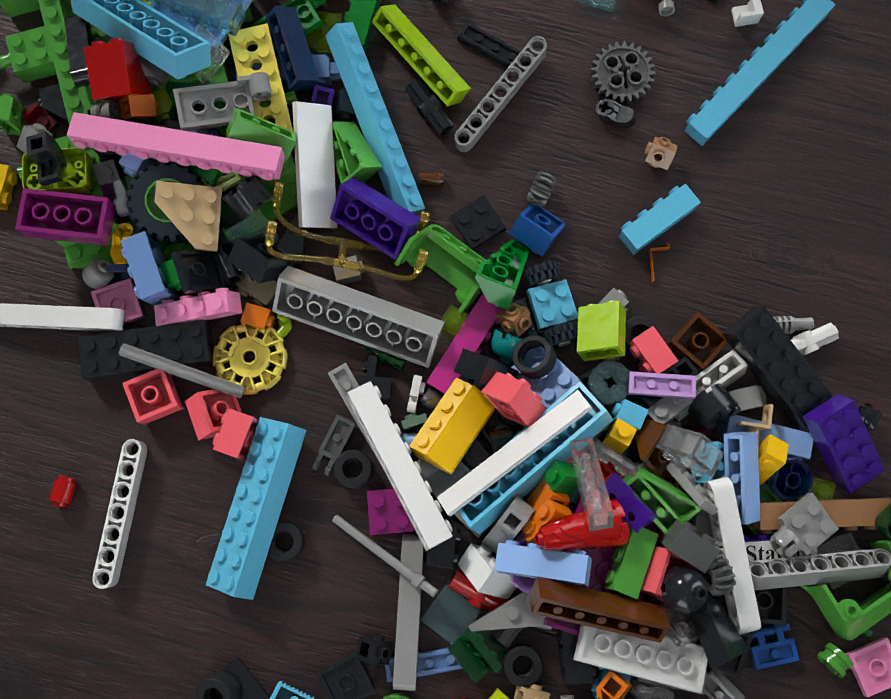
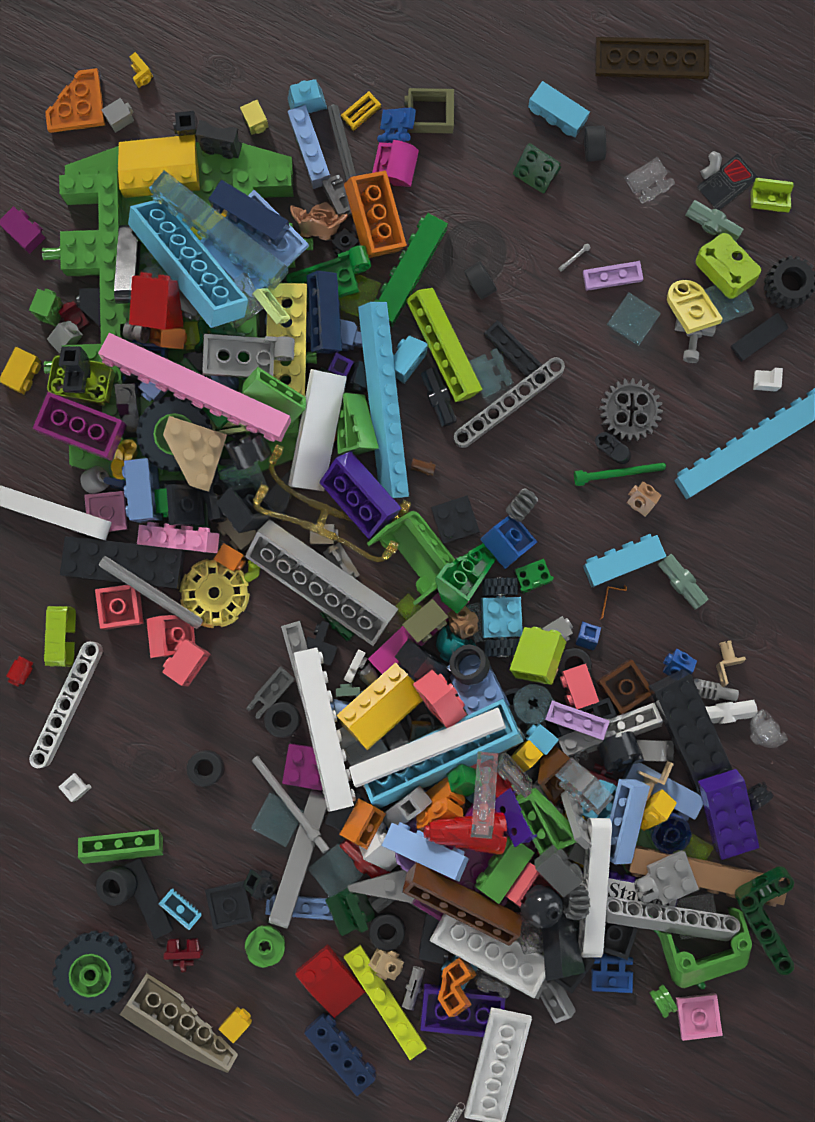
camera: 15 degrees right, 5 degrees up
(91, 428) = (58, 622): none -> lime axle
(148, 599) = (74, 787): none -> white panel
(212, 650) = (120, 846): none -> bright green brick
(236, 49) = (271, 305): none -> yellowish green tile
(256, 508) = (187, 732): medium azure brick -> none
(369, 287) = (338, 557): none -> light grey hinge
(373, 577) = (276, 820): none -> clear light blue plate
(389, 74) = (408, 357): none -> medium azure slope
(467, 554) = (362, 824): none -> orange brick
(471, 76) = (485, 374): none -> clear light blue plate
(476, 326) = (425, 621): none -> olive brick
(572, 258) = (533, 577): none -> green piece
(593, 149) = (581, 477): none -> green piece
(644, 303) = (588, 636): none -> blue slope
(723, 224) = (683, 581): none -> sand green piece
(742, 303) = (678, 661): none -> blue brick
(793, 290) = (729, 660): none -> tan bracket
(853, 349) = (766, 730): none -> clear cylinder

